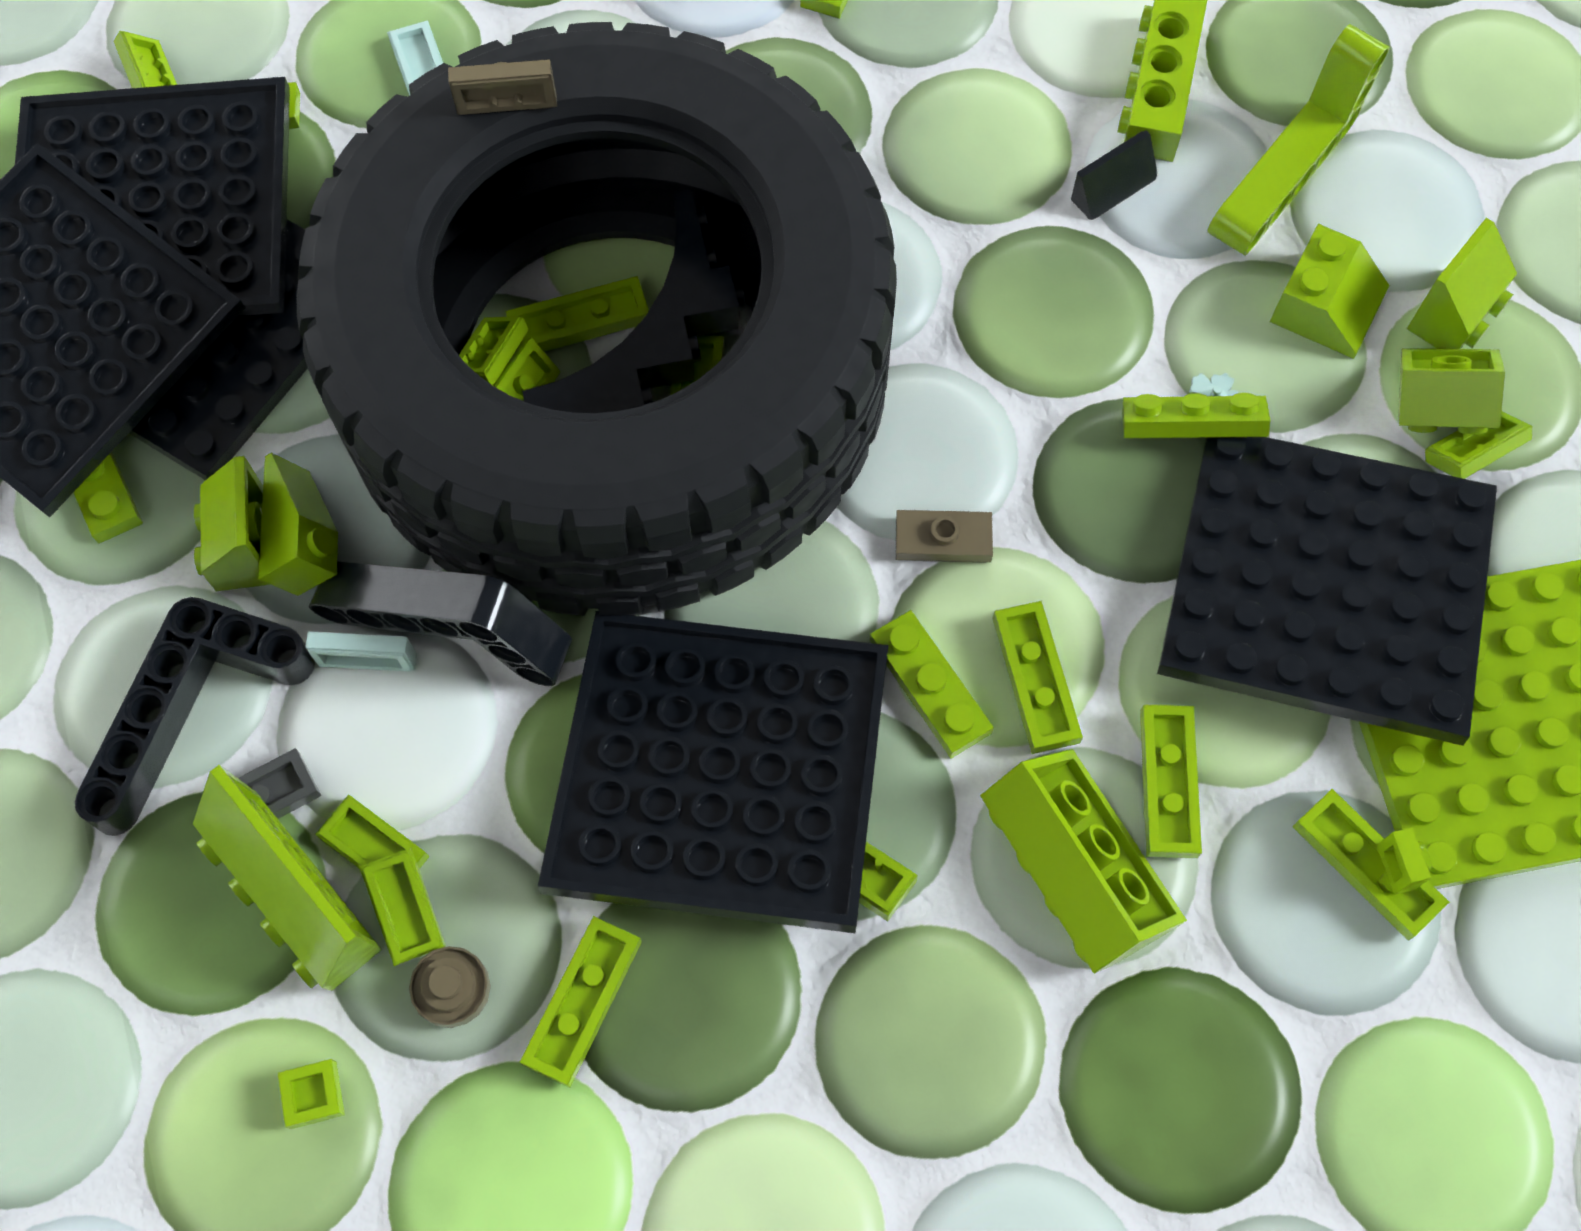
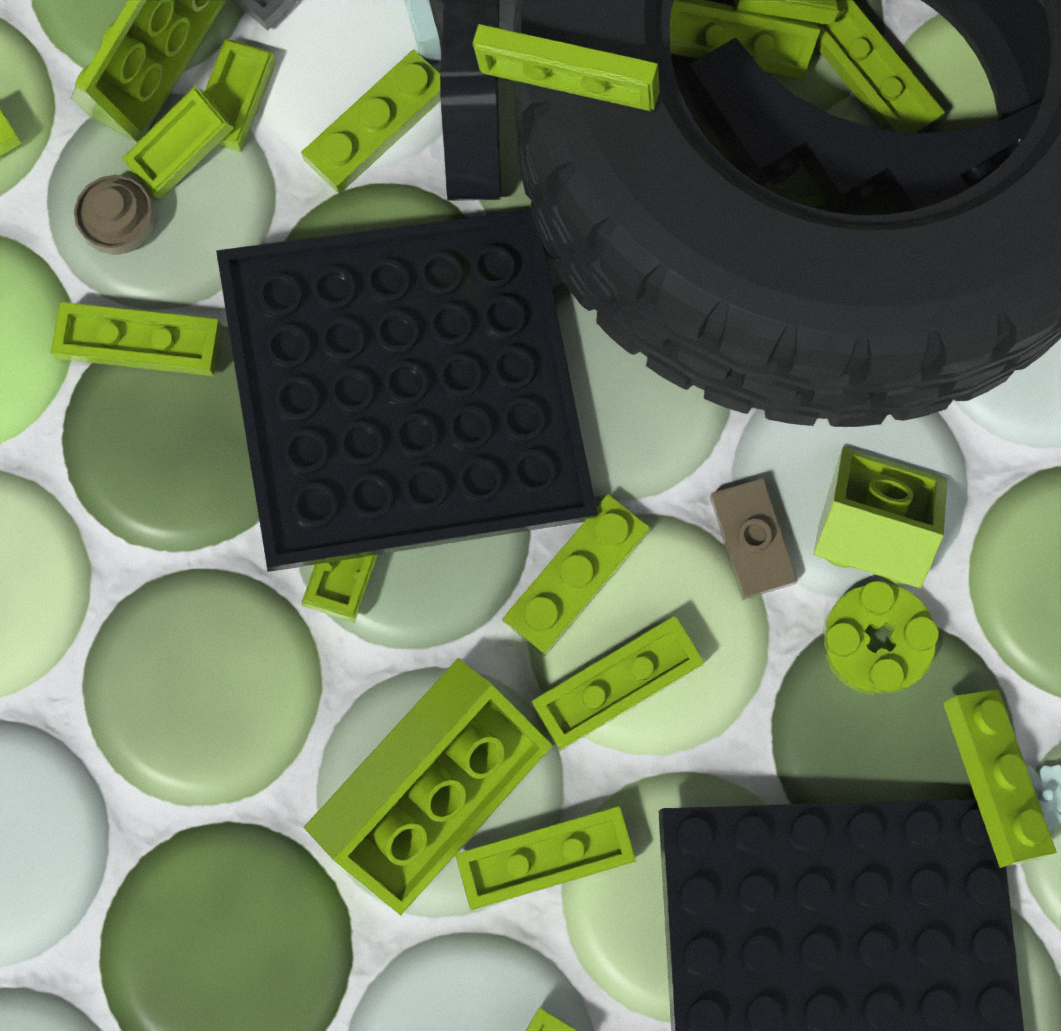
camera: 75 degrees right, 10 degrees up
(453, 725) = (374, 122): none -> lime plate
(549, 477) = (567, 67): none -> lime tile
(960, 431) = (882, 518): none -> lime slope
(1051, 493) = (911, 633): none -> lime plate

